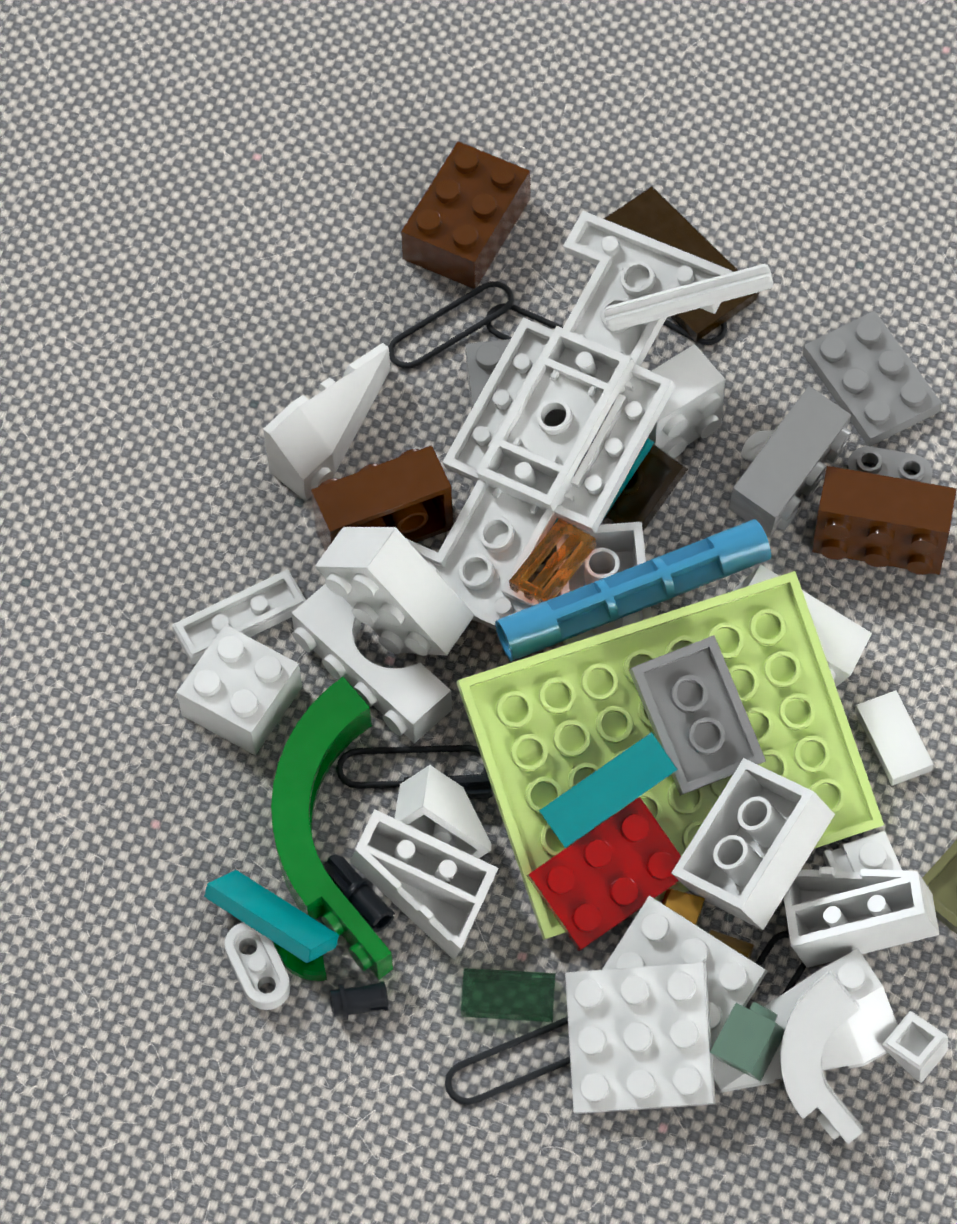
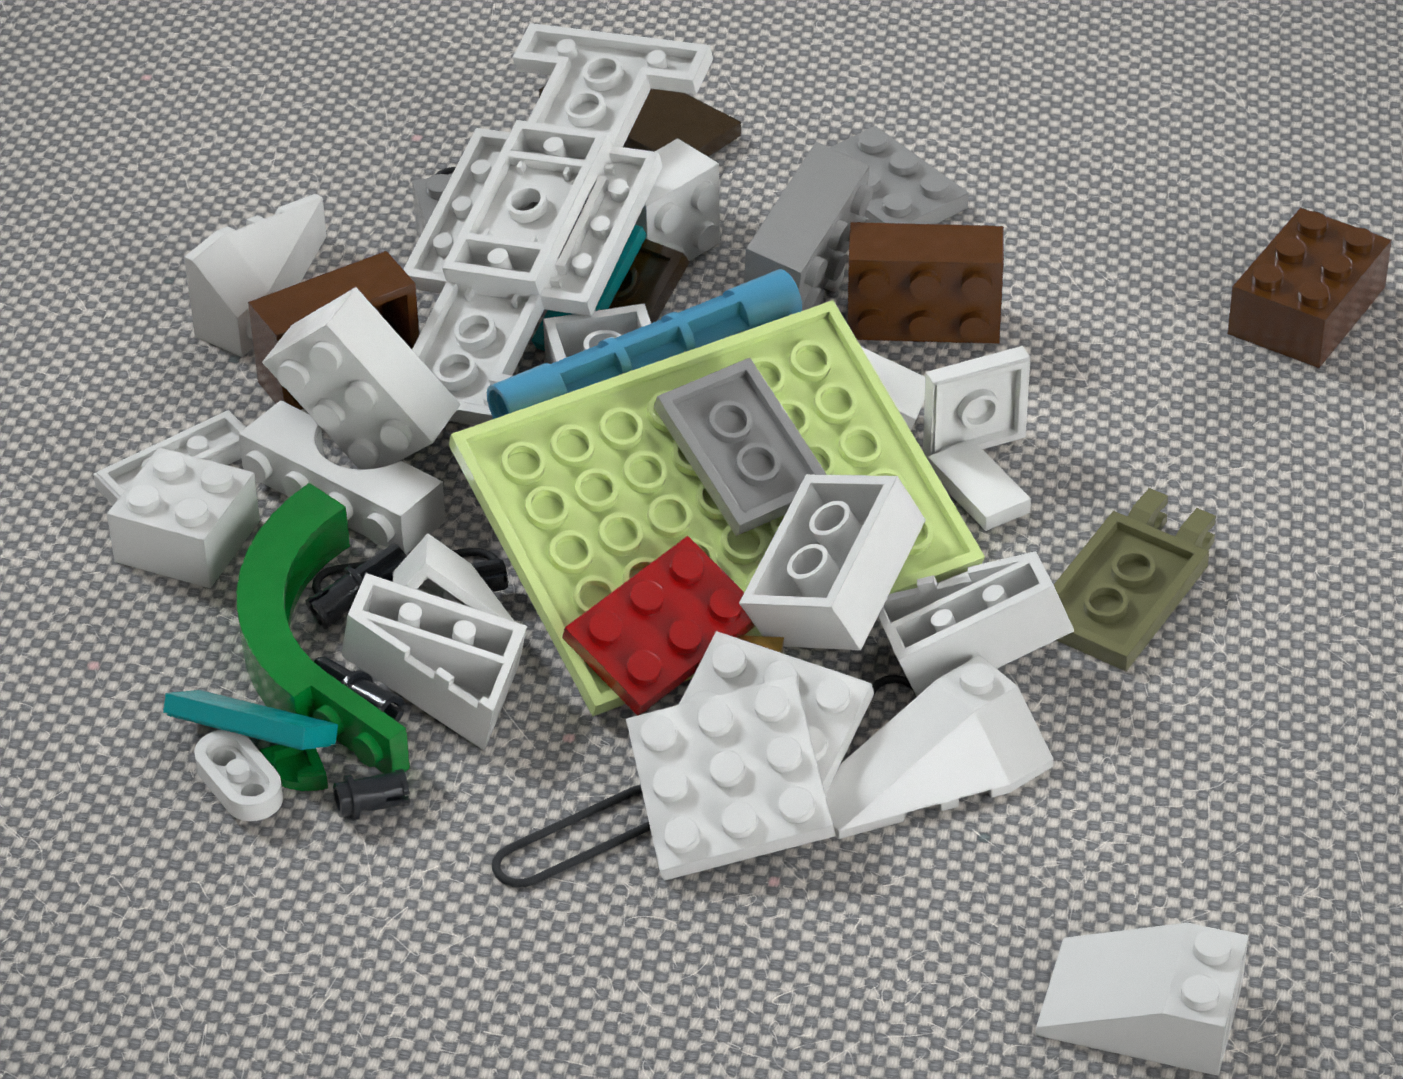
camera: 10 degrees left, 20 degrees down
(372, 781) = (336, 599): none -> black axle
(424, 358) = (380, 179): black piece -> none
(466, 215) = (395, 90): reddish brown brick -> none
(508, 995) = (558, 771): clear green tile -> none
(567, 570) = (553, 344): clear orange tile -> none
(608, 789) = (649, 526): teal tile -> none
(688, 297) = (664, 71): white axle -> none
(749, 1039) = (864, 760): sand green brick -> none
(808, 1028) = (940, 719): white arch -> none
(903, 667) = (977, 401): none -> white plate
(916, 1046) = (1071, 757): white slope -> none

